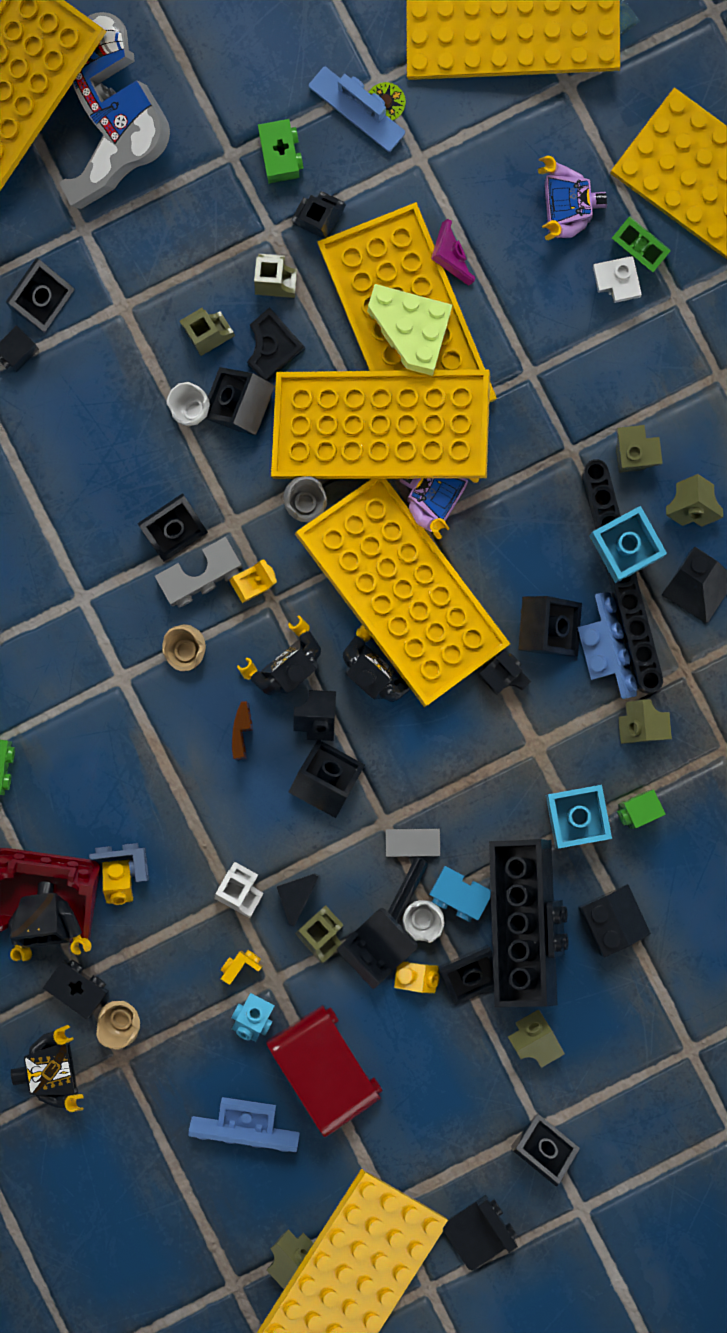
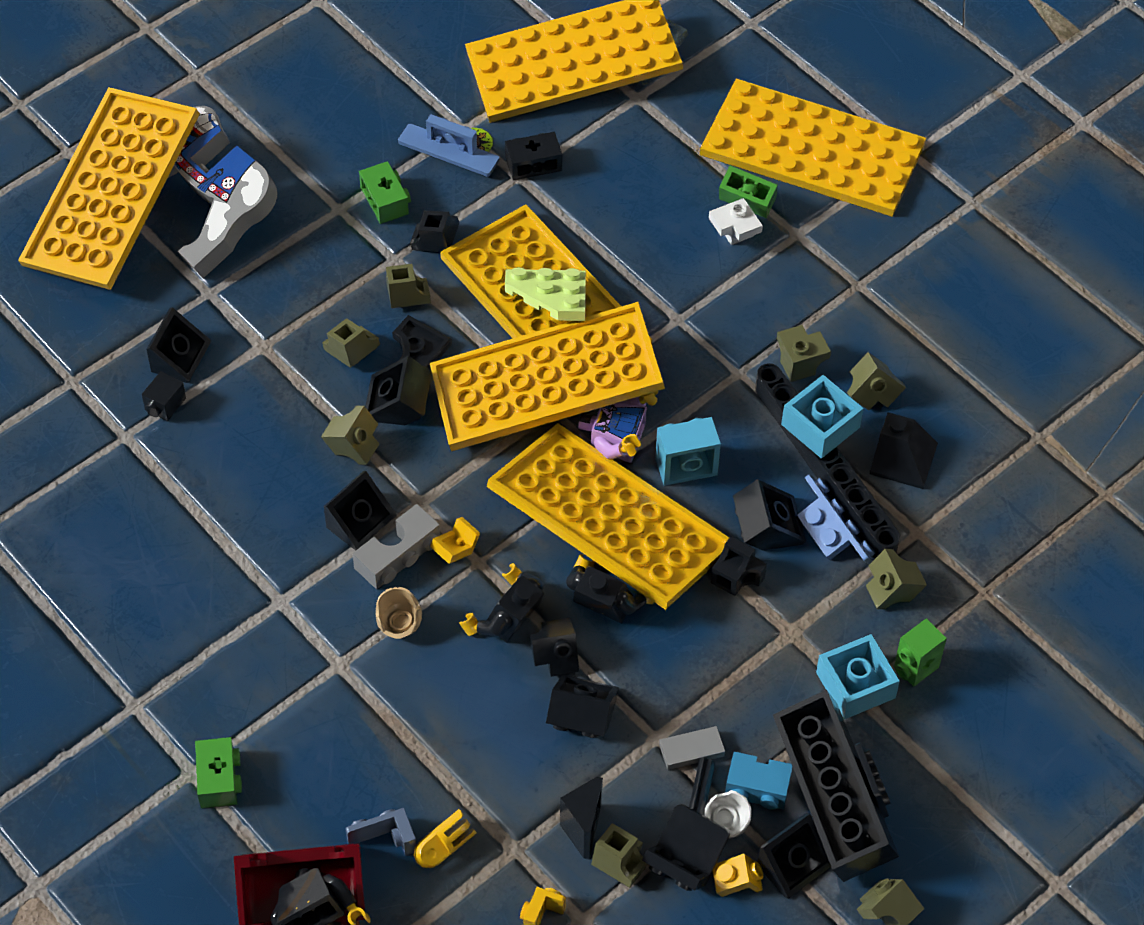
camera: 15 degrees left, 30 degrees down
(117, 882) = (383, 858): yellow bracket -> none
(172, 881) = (441, 843): none -> yellow arm
(184, 439) = (352, 435): none -> olive brick
(188, 404) = (346, 398): white hair -> none
(238, 890) = (518, 833): white brick -> none
(241, 724) = (481, 673): reddish brown slope -> none
(305, 498) = (486, 455): light grey hair -> none
(426, 142) = (533, 155): none -> black brick
(450, 254) = (573, 240): magenta tile -> none
(493, 539) = (687, 451): none -> medium azure brick
(568, 200) = (667, 173): torso -> none
(614, 920) = (927, 772): black slope -> none

